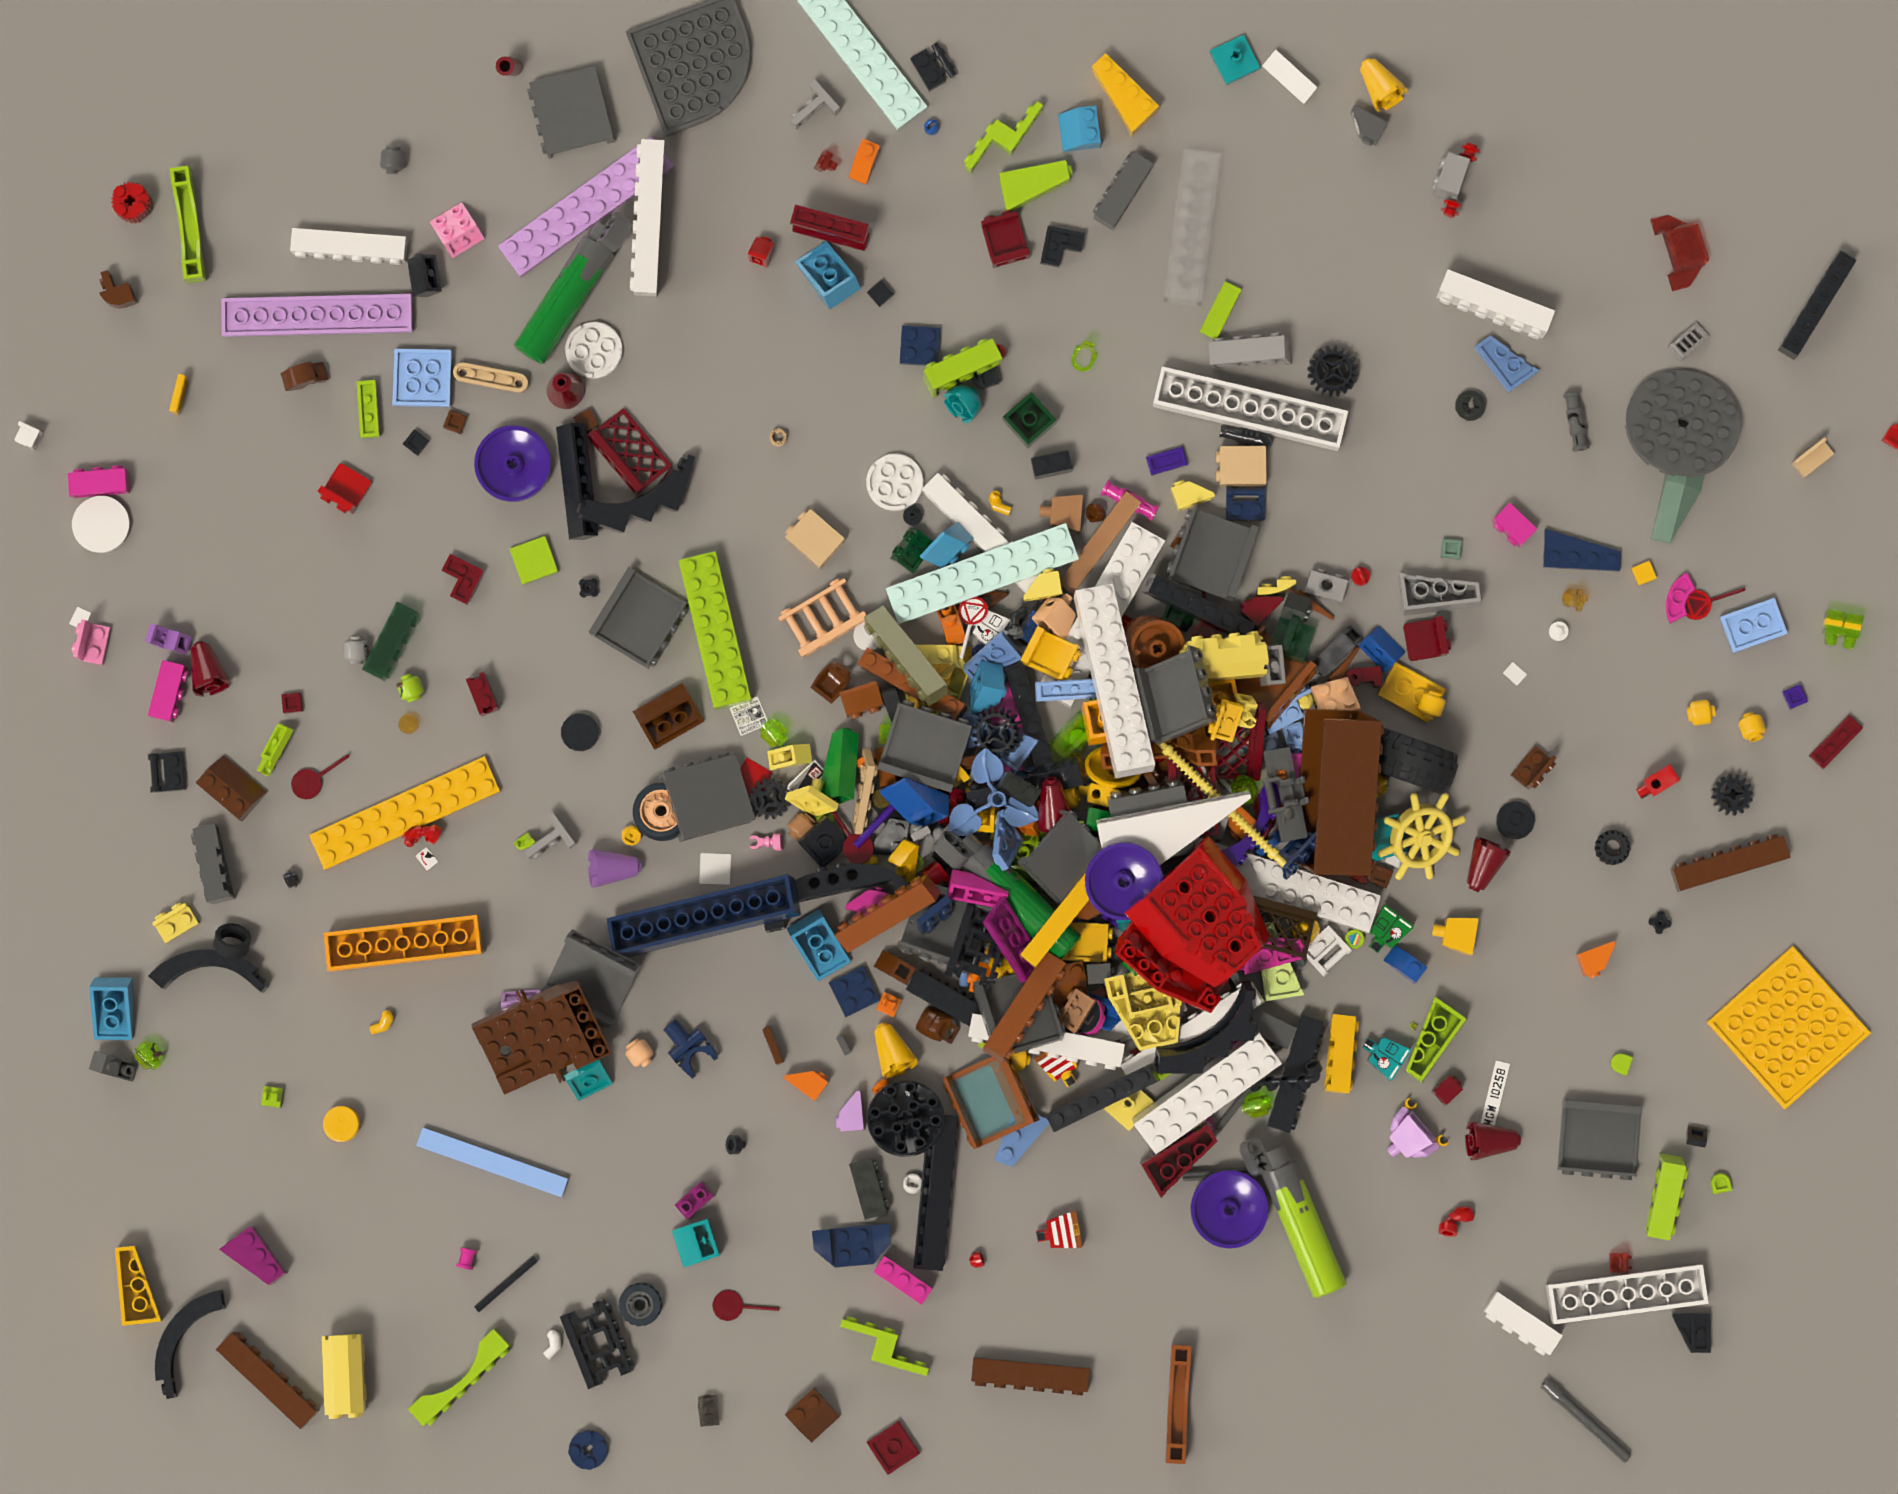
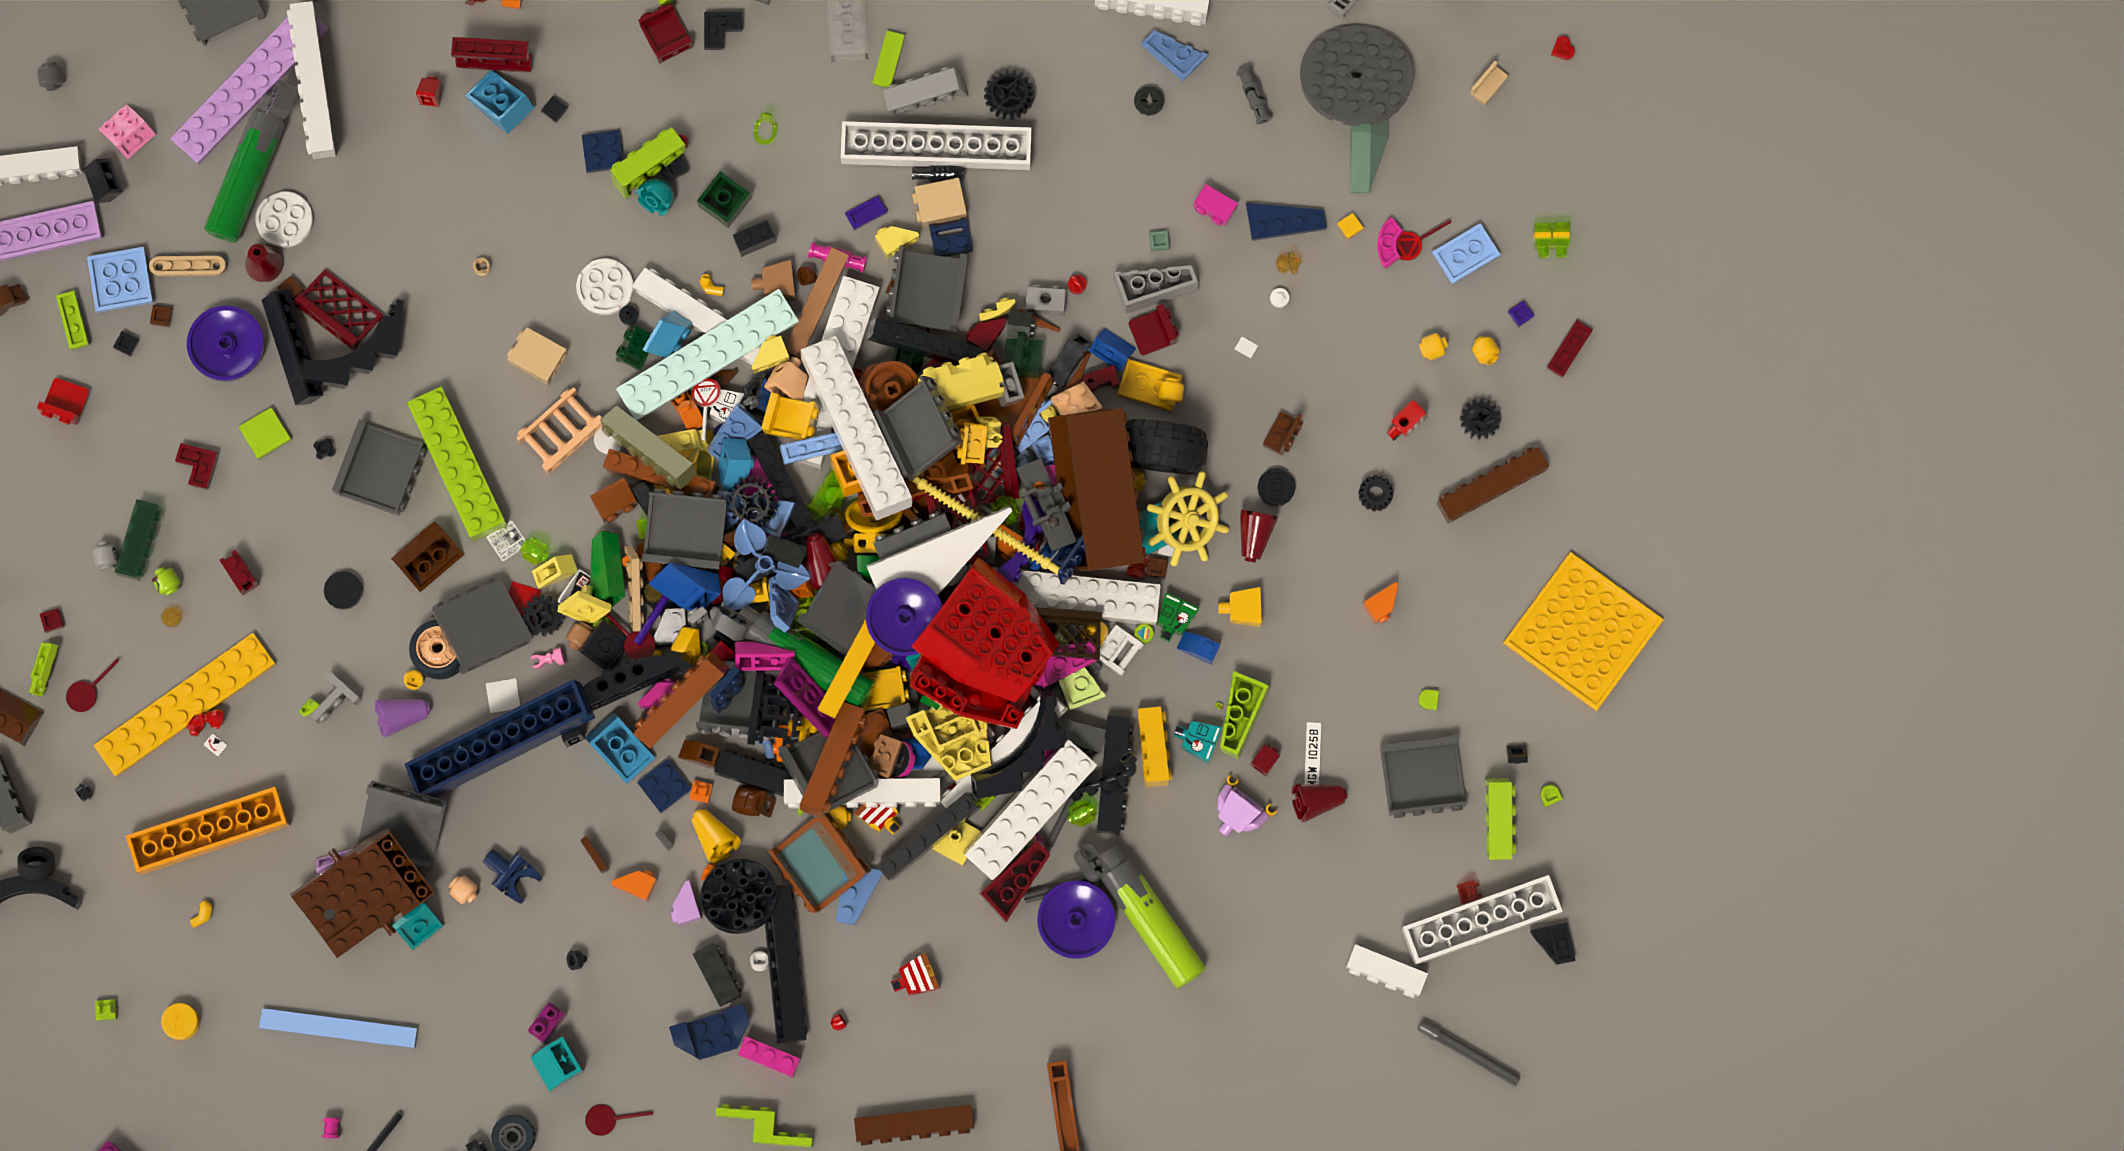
camera: 20 degrees left, 5 degrees down
(831, 681) = (580, 489): reddish brown piece -> none
(1448, 1227) = (1294, 892): red arm -> none
(1660, 917) = (1437, 551): black plate -> none

